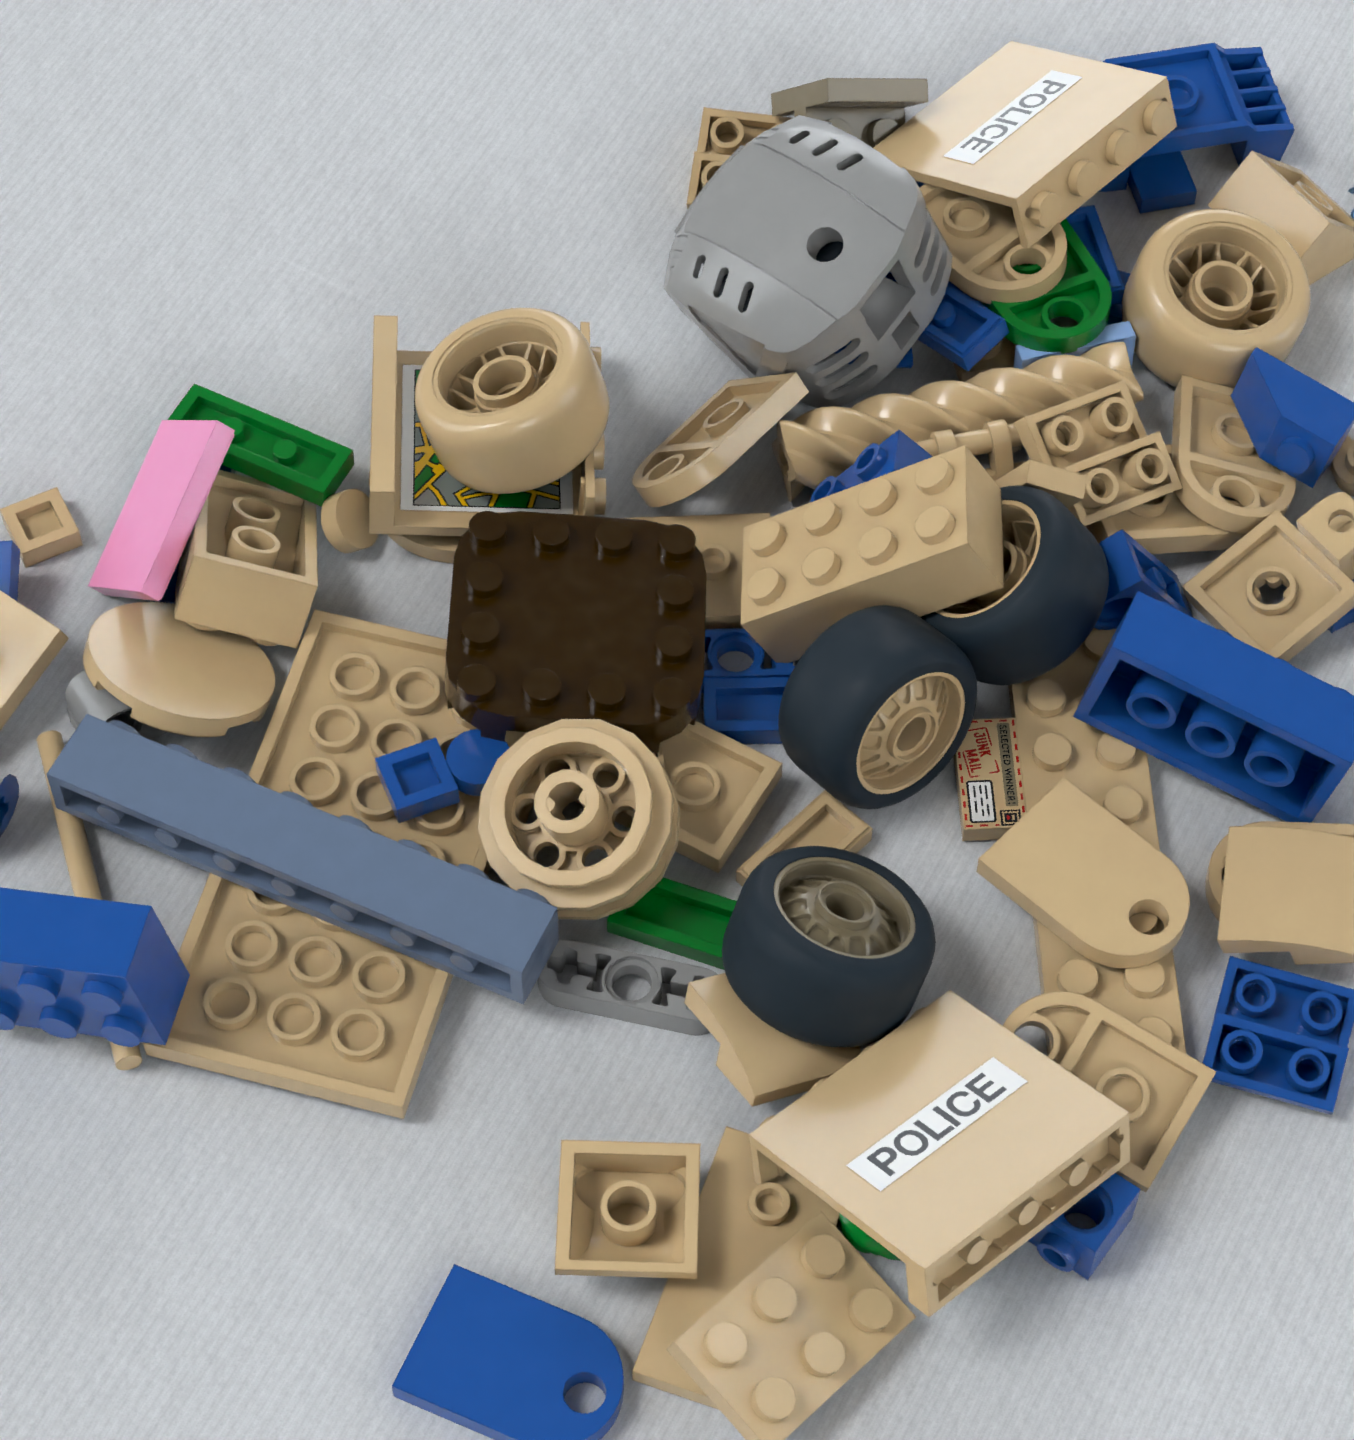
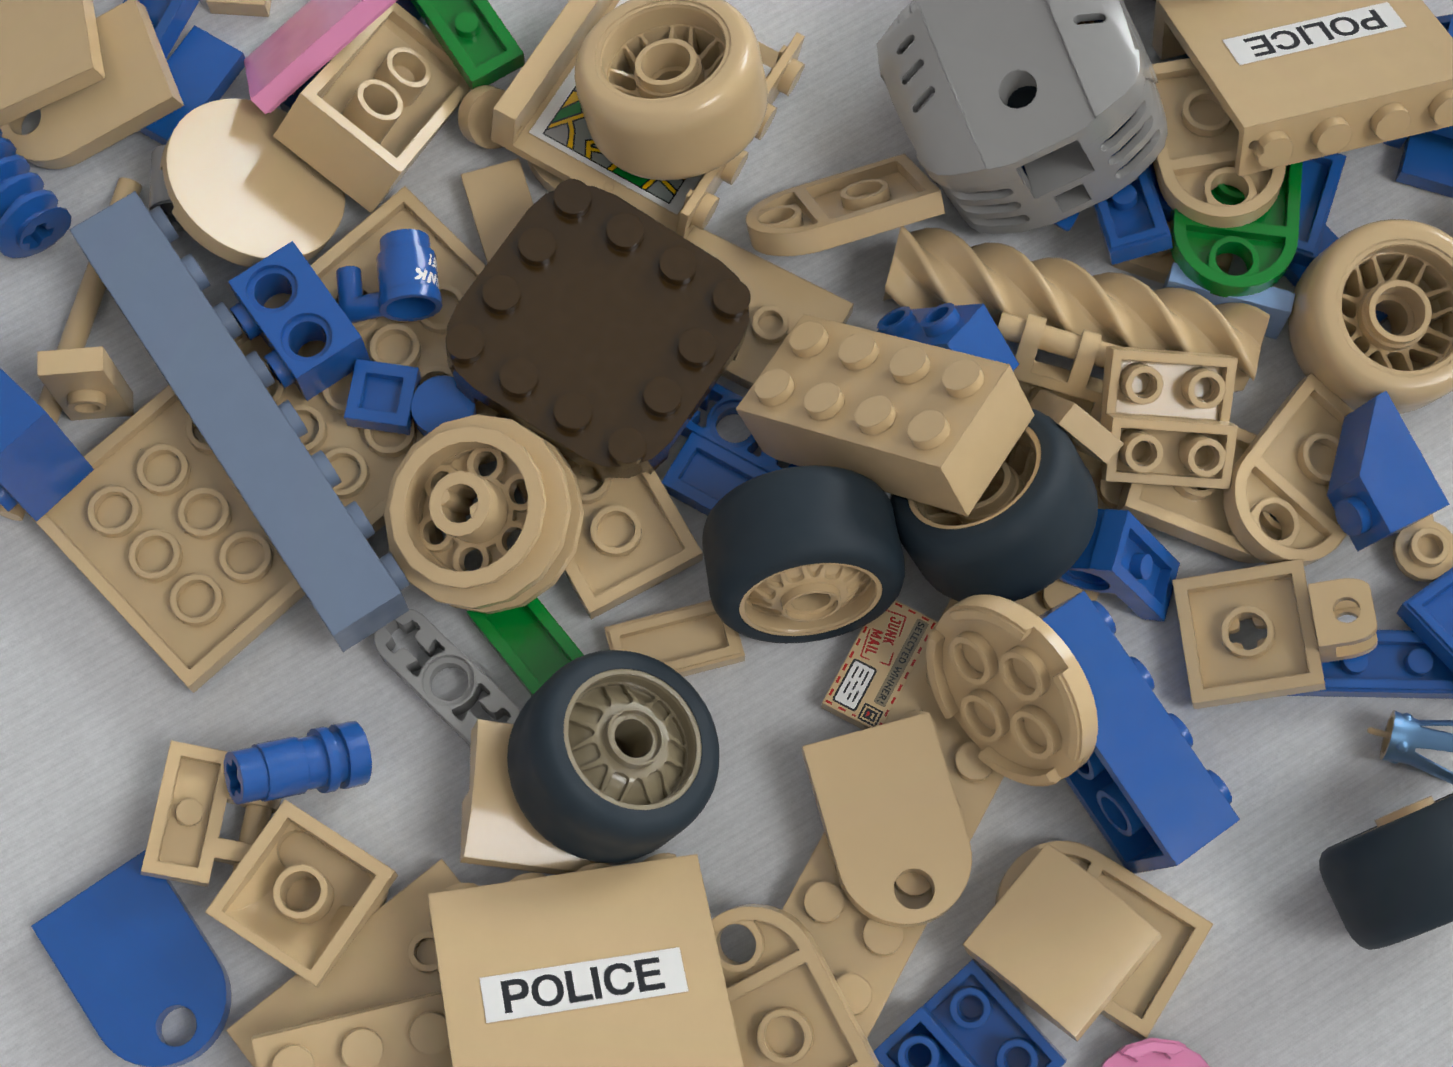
camera: 30 degrees right, 15 degrees up
(65, 606) = (202, 72): none -> blue tile
(143, 881) = (85, 383): none -> tan plate
(310, 741) = (306, 317): none -> blue brick
(375, 672) = (405, 281): none -> blue piece
(408, 592) = (497, 202): none -> tan tile
(479, 1207) = (190, 818): none -> tan plate
(562, 1102) = (293, 765): none -> blue axle
(1128, 704) = (1012, 689): none -> tan tile

